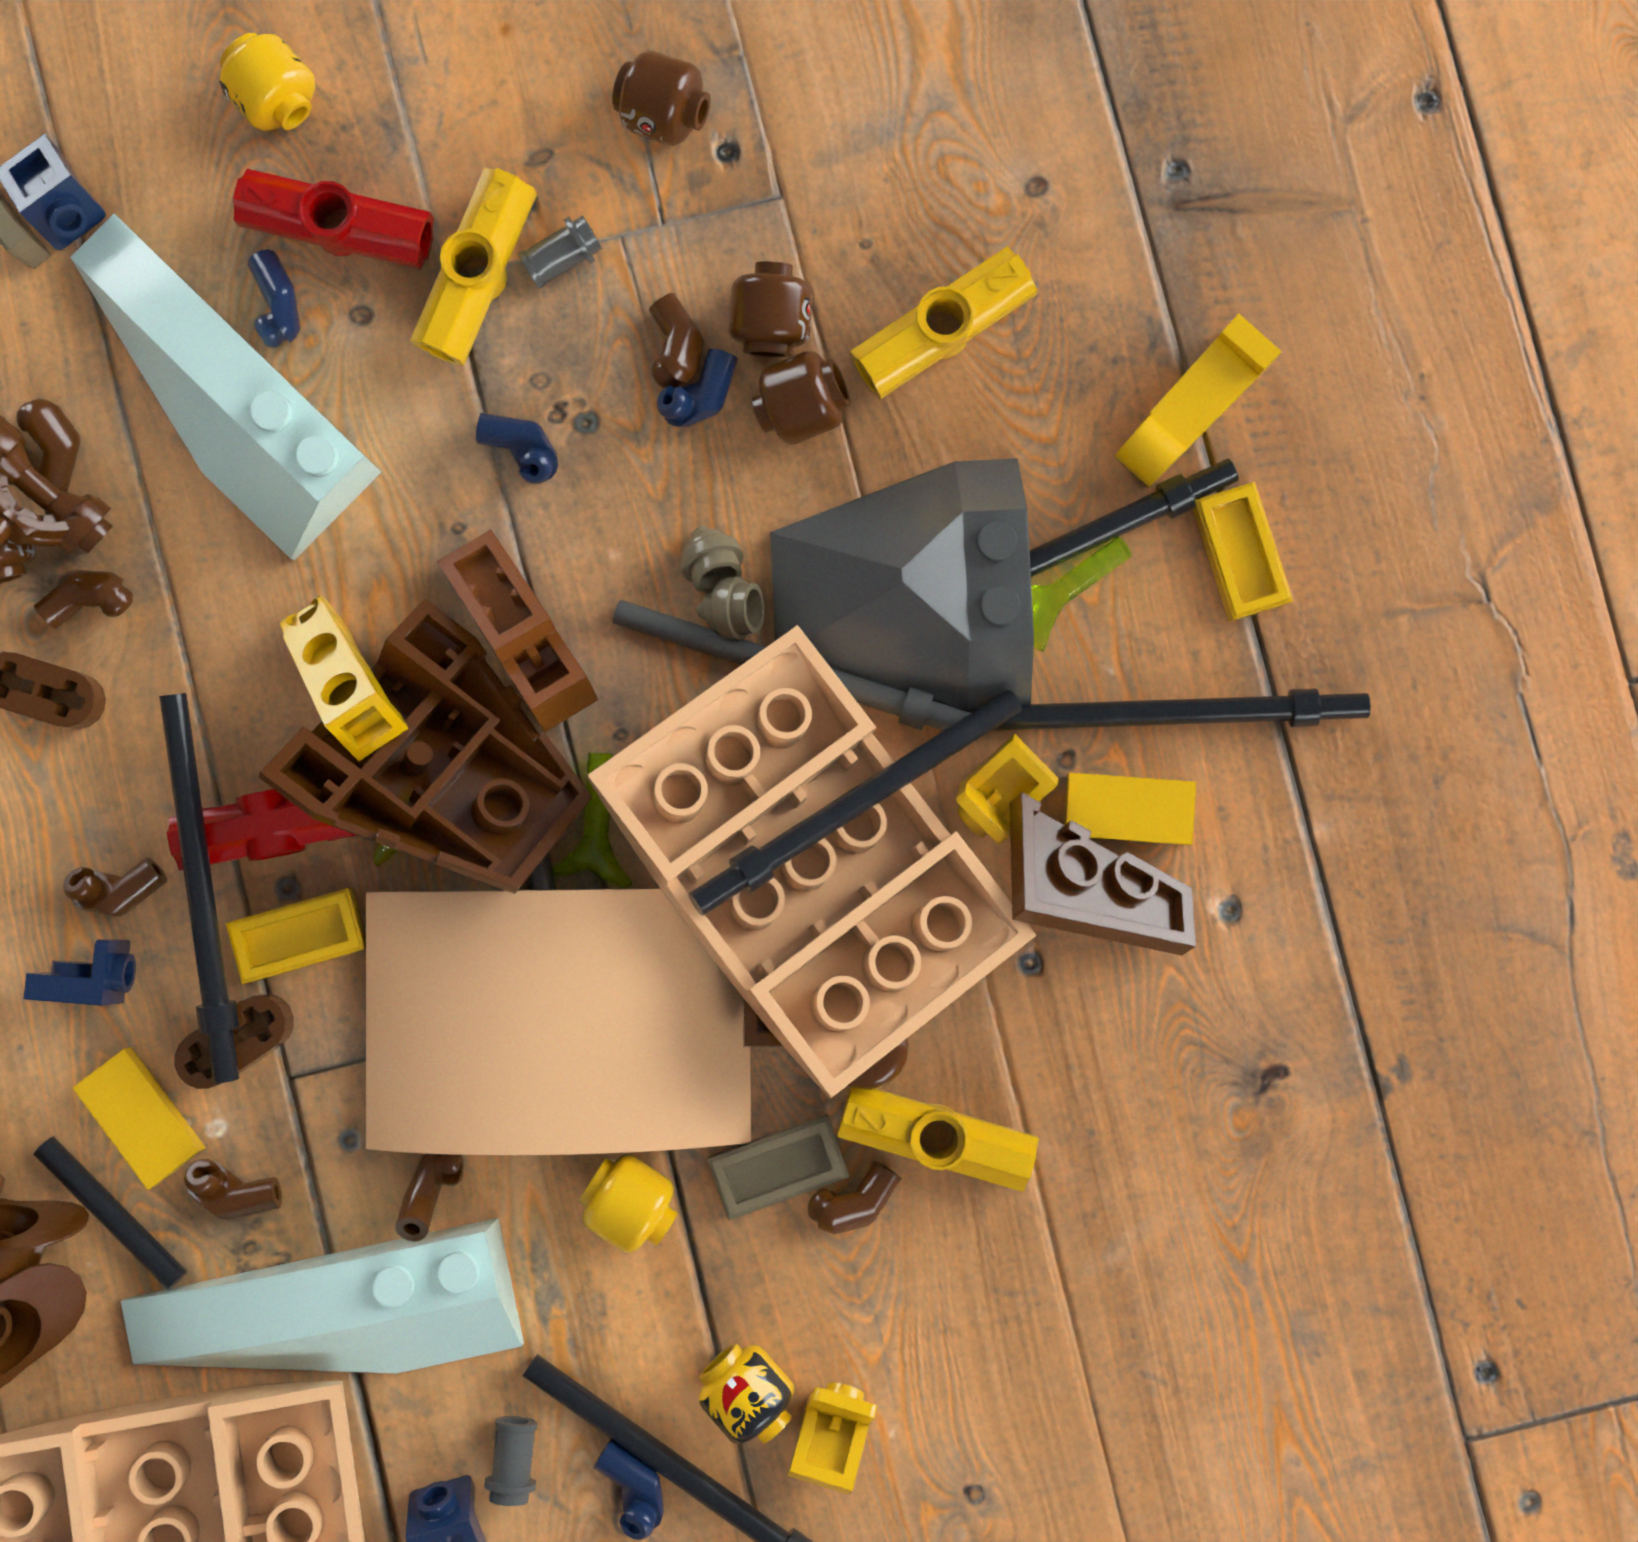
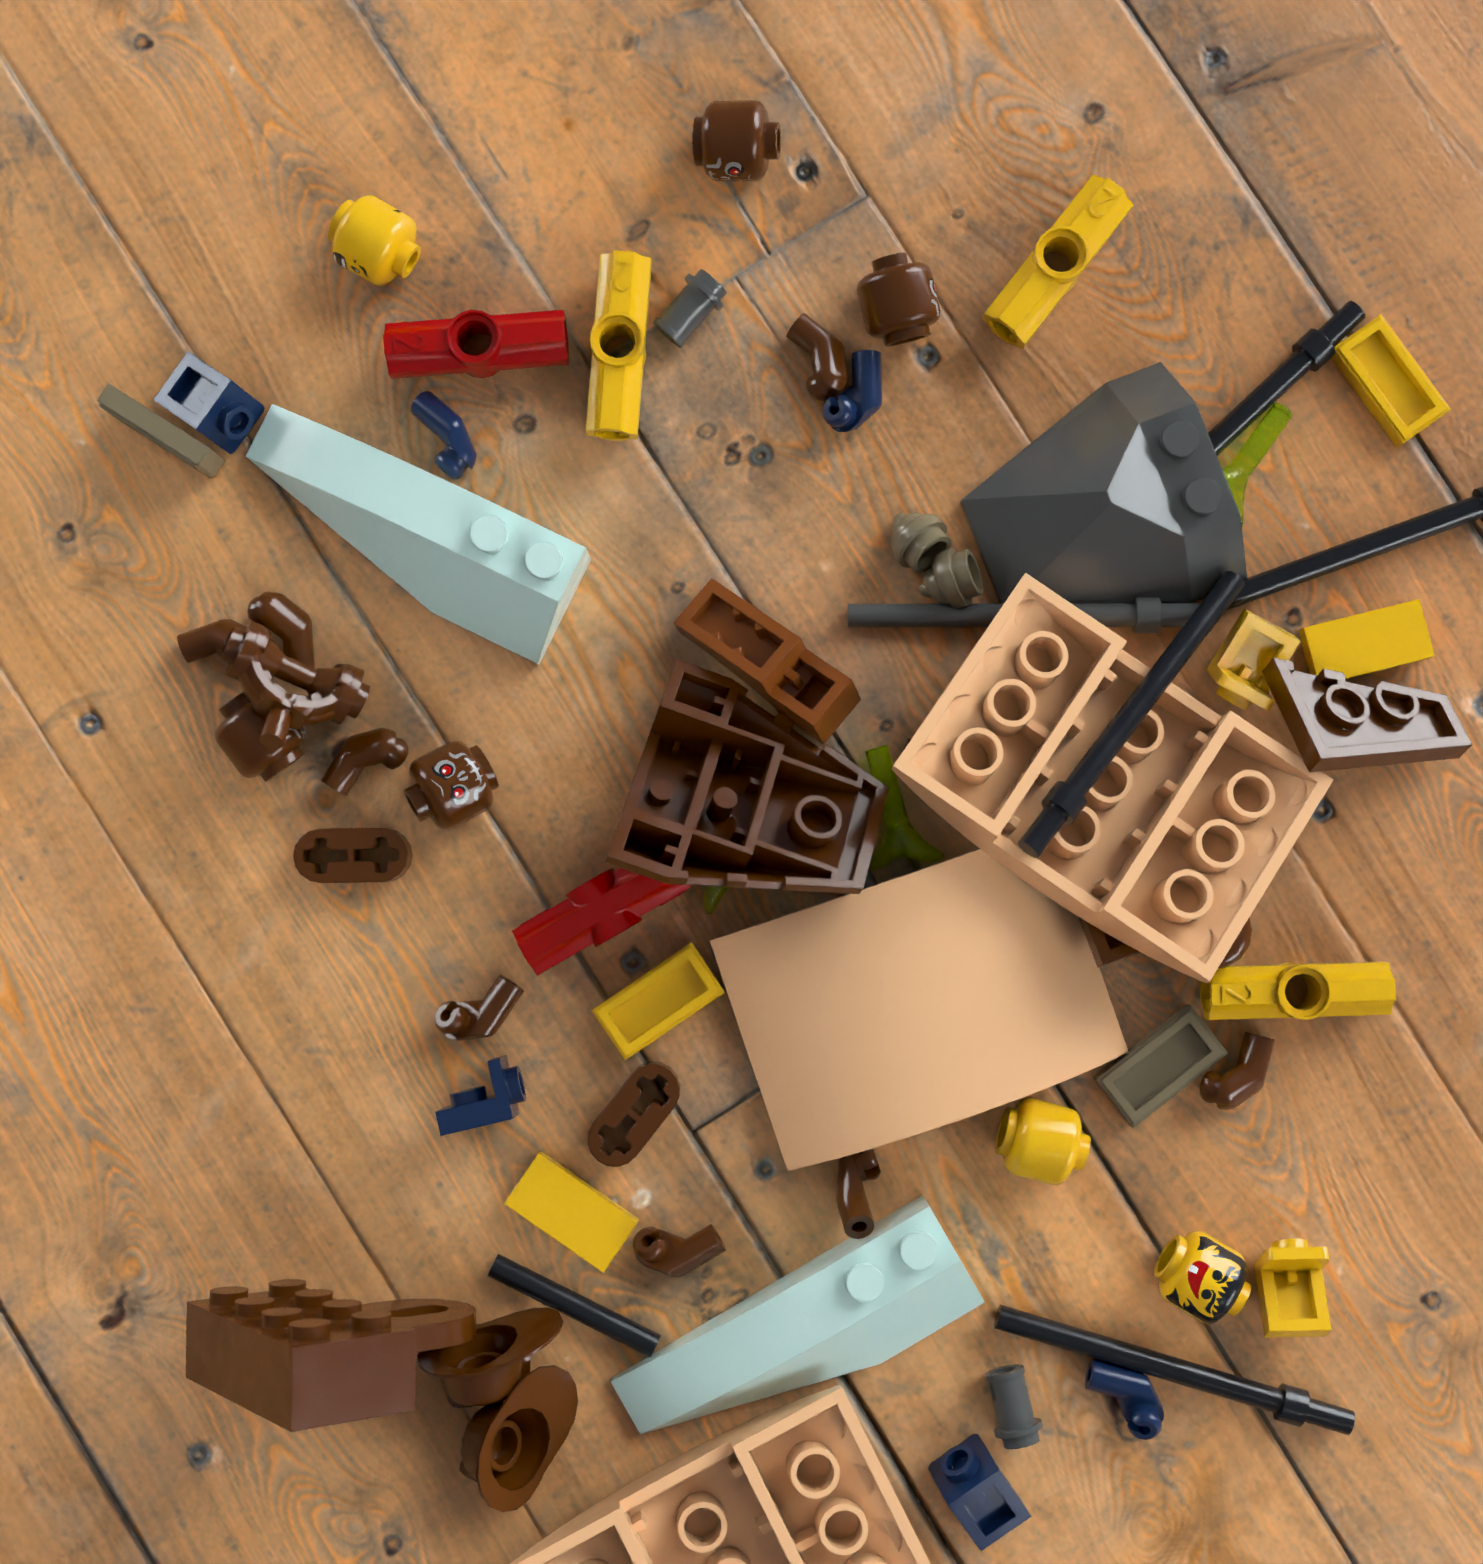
camera: 20 degrees left, 0 degrees up
(158, 651) = (451, 785): none -> reddish brown head
(216, 1014) = (616, 1091): black bar -> none
(340, 680) = (632, 753): yellow leg -> none
(525, 441) = (715, 490): dark blue arm -> none
(801, 397) = (952, 369): reddish brown head -> none
(1198, 399) = (1307, 256): yellow leg -> none

